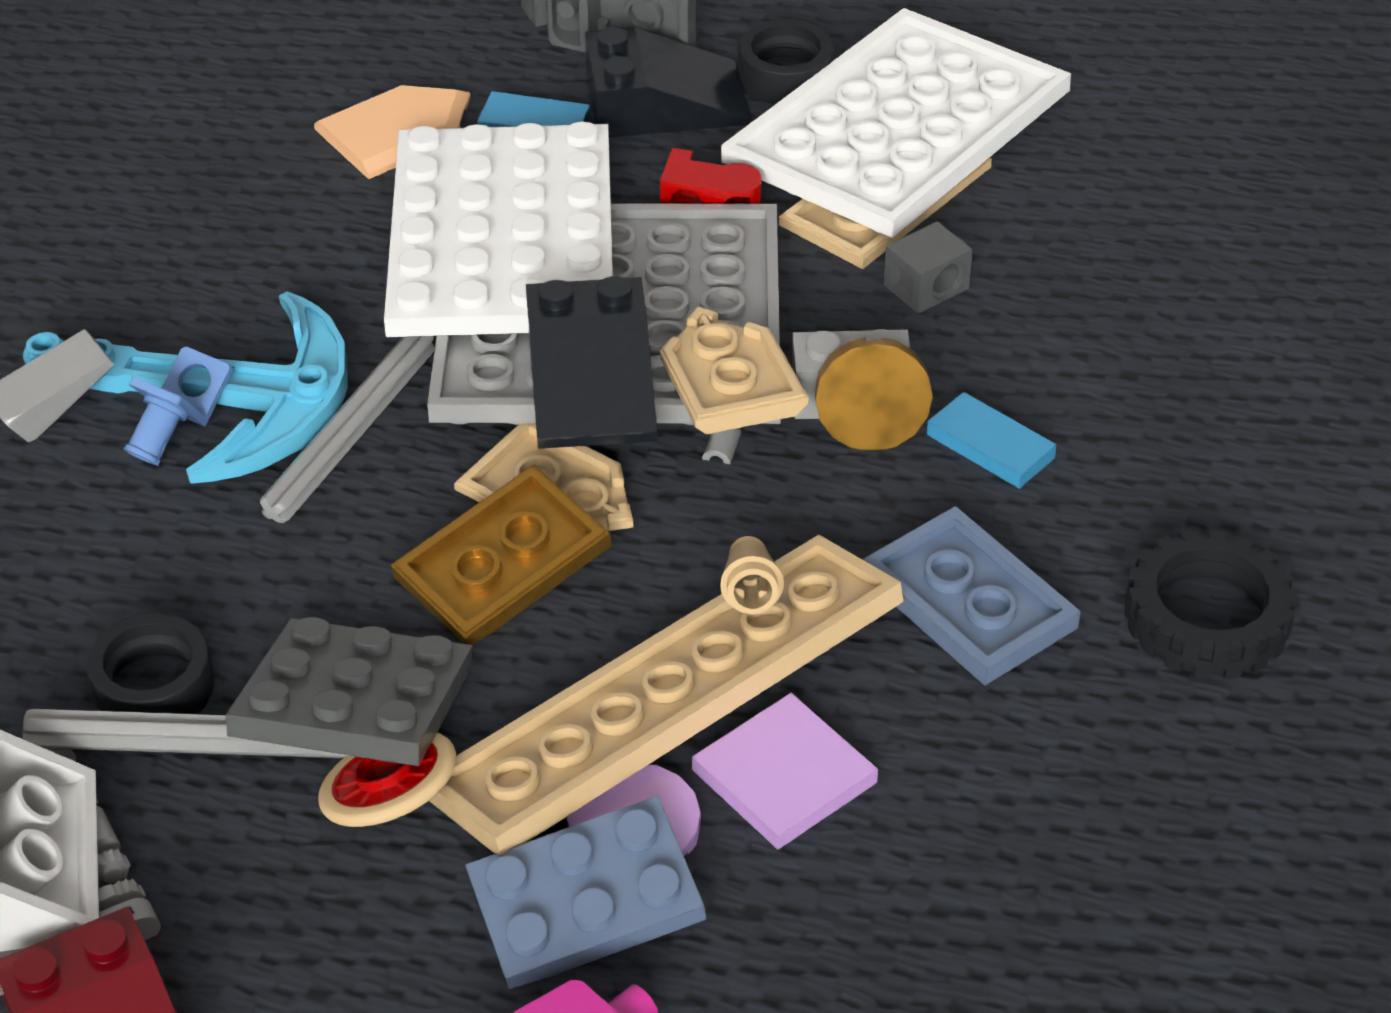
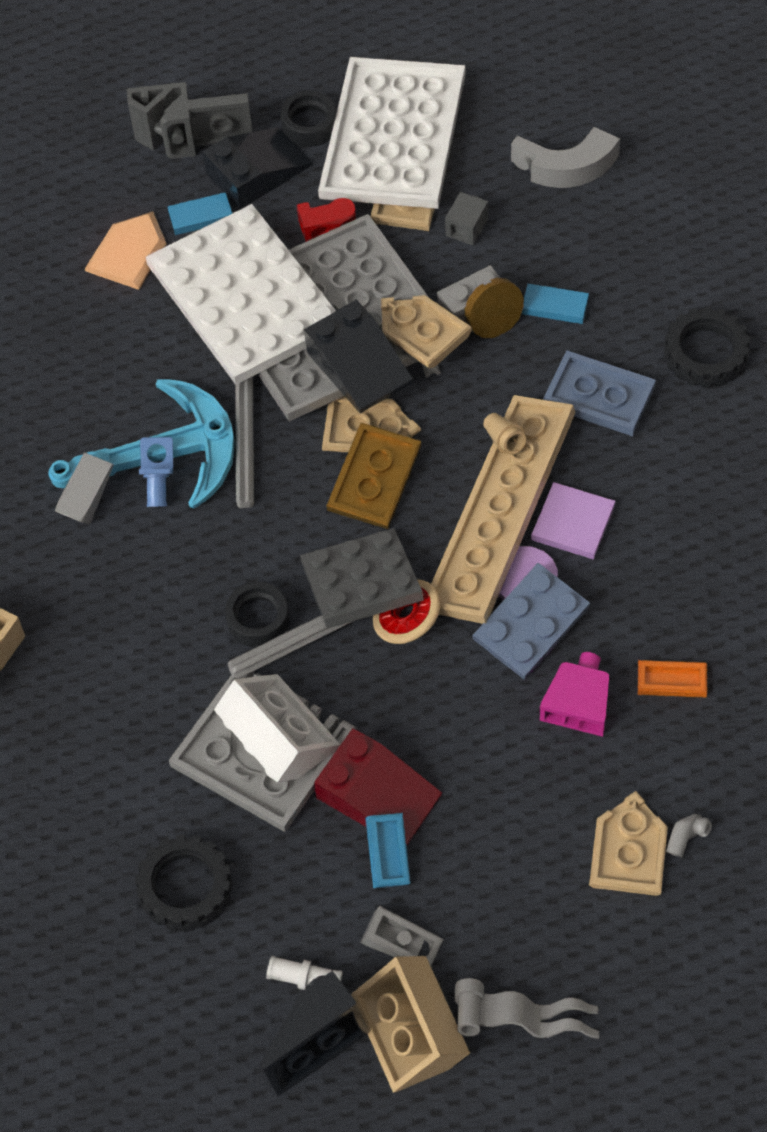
camera: 25 degrees left, 15 degrees up
(1151, 262) = (568, 166): none -> light grey arch

